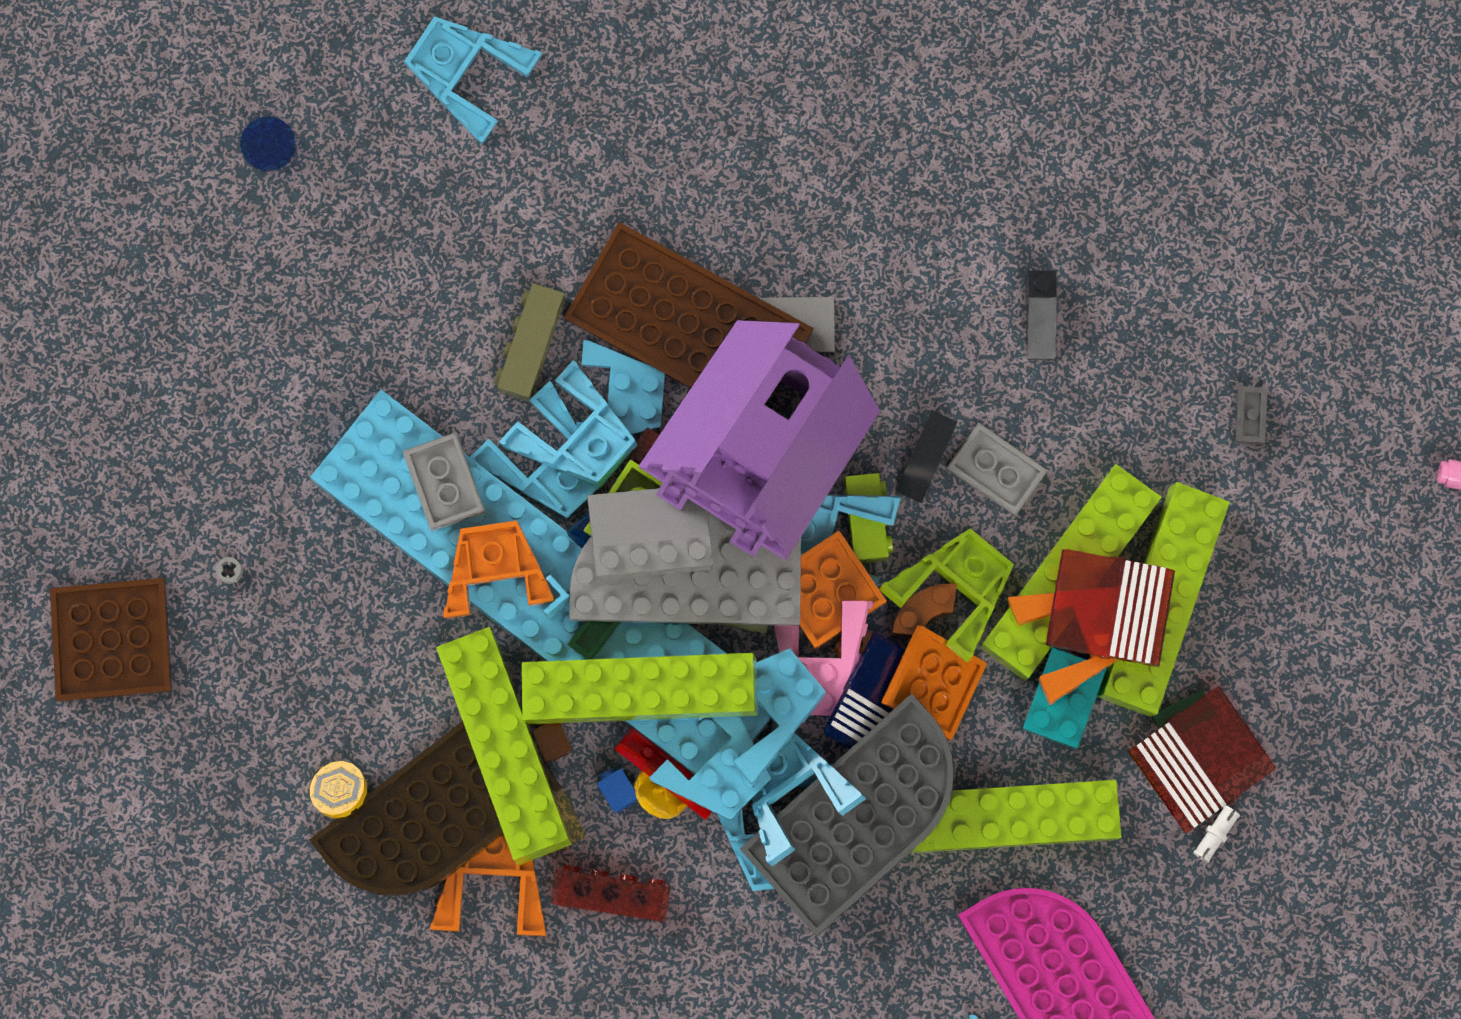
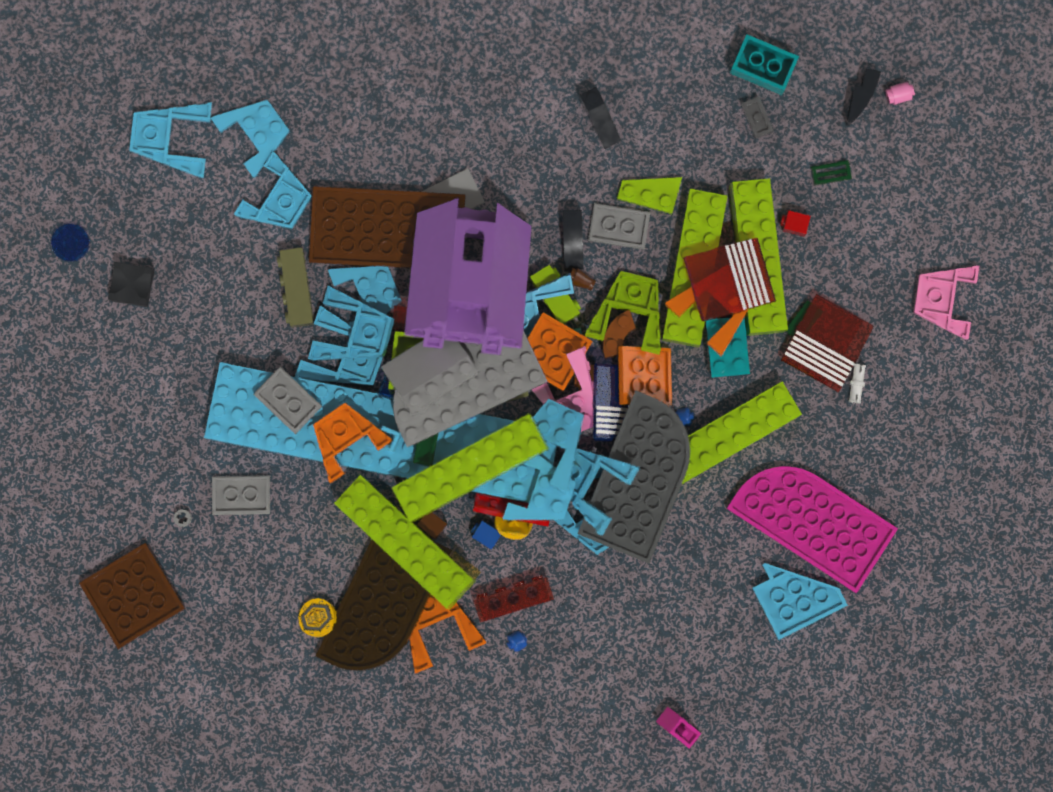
camera: 25 degrees left, 5 degrees up
(318, 234) = (131, 284): none -> black brick
(321, 578) = (240, 495): none -> light grey tile
(571, 225) = (284, 202): none -> medium azure wing
(588, 954) = (517, 641): none -> blue piece
(591, 116) = (261, 126): none -> medium azure wing
(912, 514) = (581, 279): none -> reddish brown cone
(962, 764) = (685, 416): none -> blue piece
(1060, 446) = (651, 193): none -> lime wing
(1235, 578) = (795, 223): none -> red brick
(1294, 350) = (764, 64): none -> teal brick
(1312, 546) = (820, 182): none -> dark green tile
(1379, 772) = (936, 298): none -> bright pink wing
(1407, 452) = (862, 94): none -> black slope

